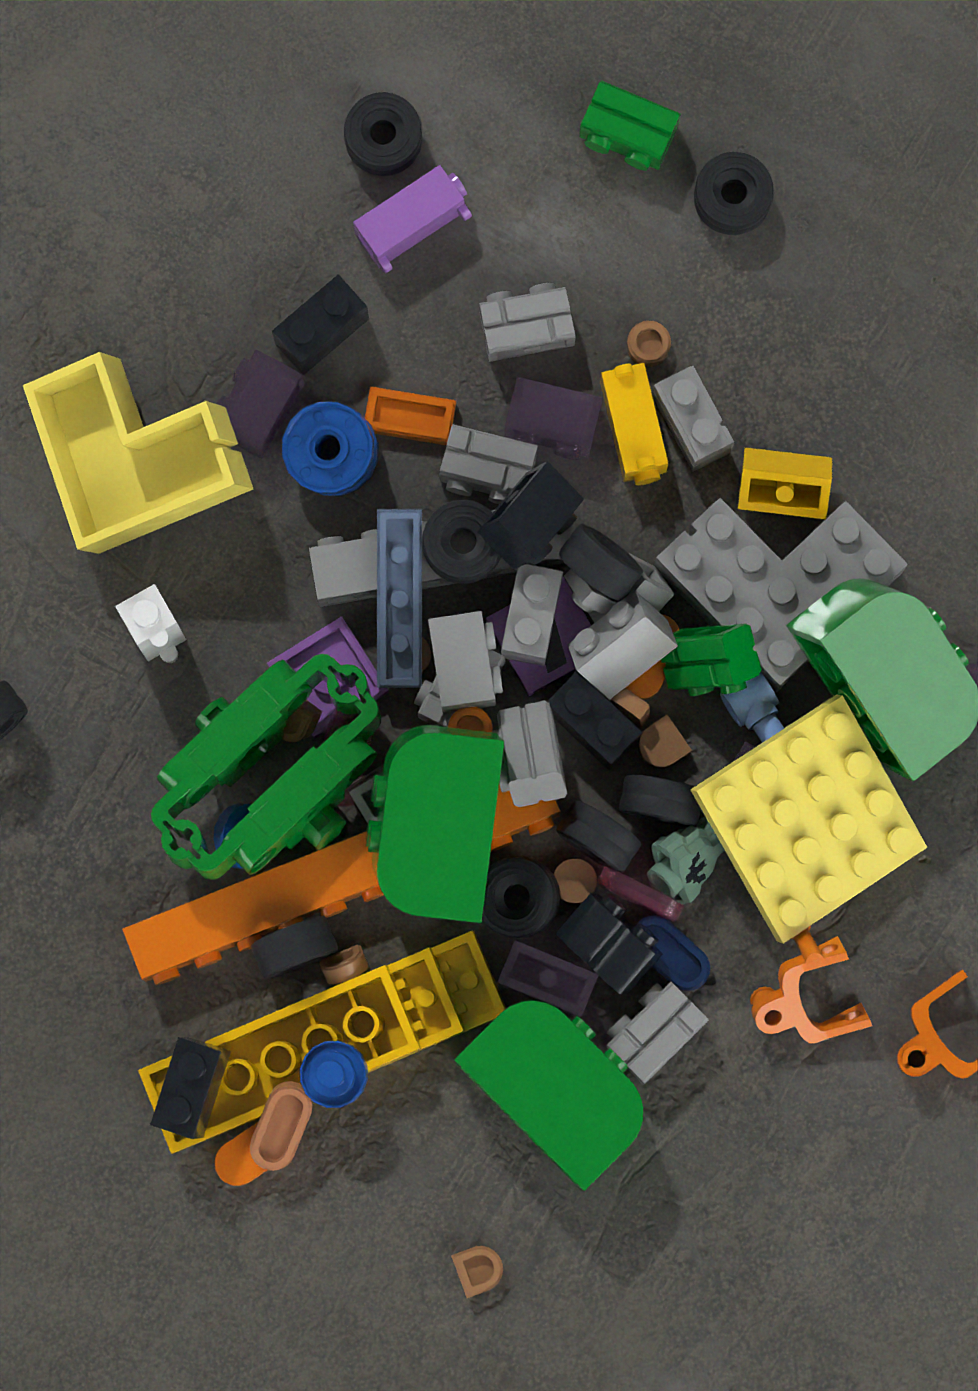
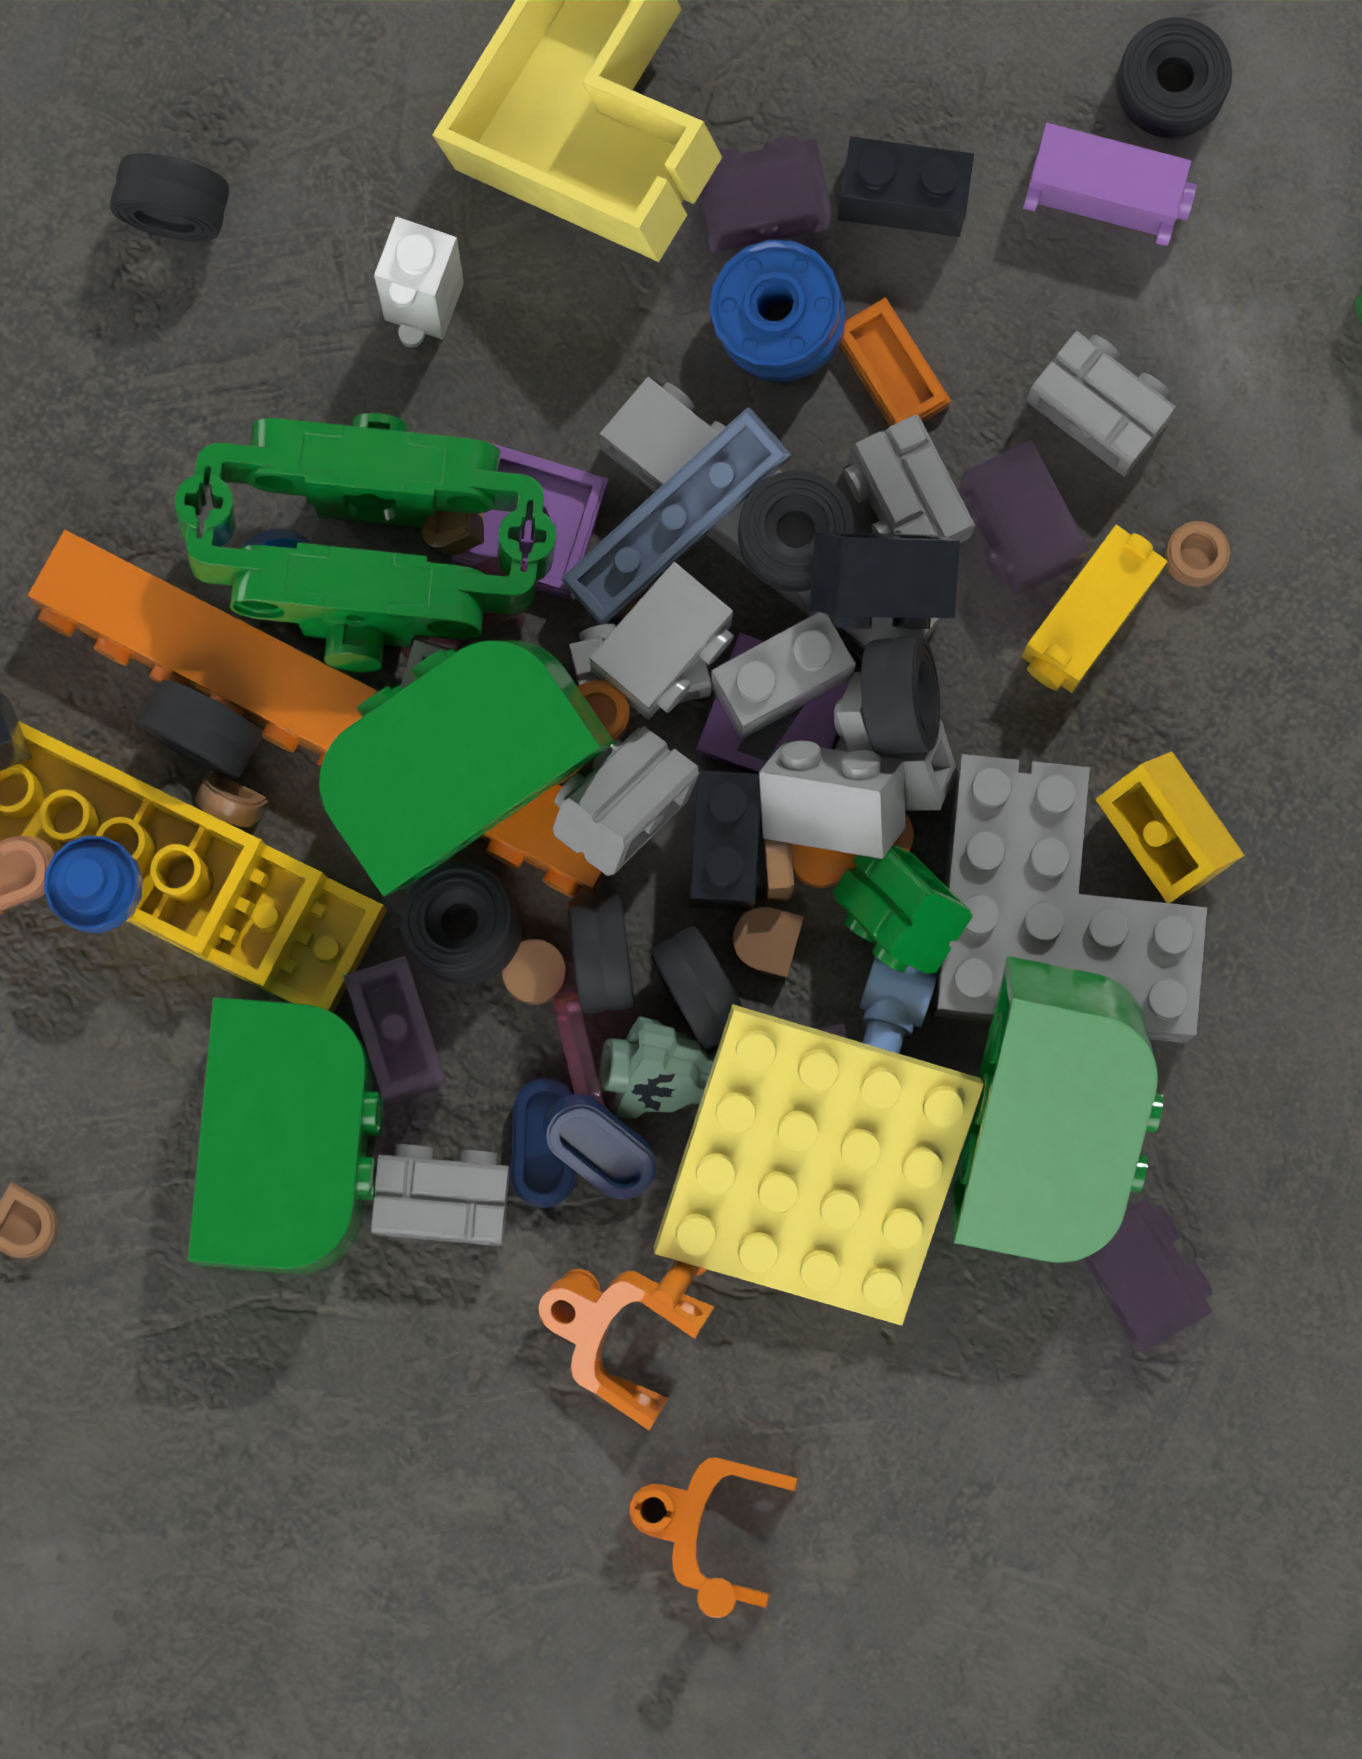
camera: 45 degrees right, 0 degrees up
(609, 942) = (495, 1064): black brick -> none
(692, 418) = (1154, 667): light grey brick -> none
(699, 925) = (599, 1146): none -> dark blue tile

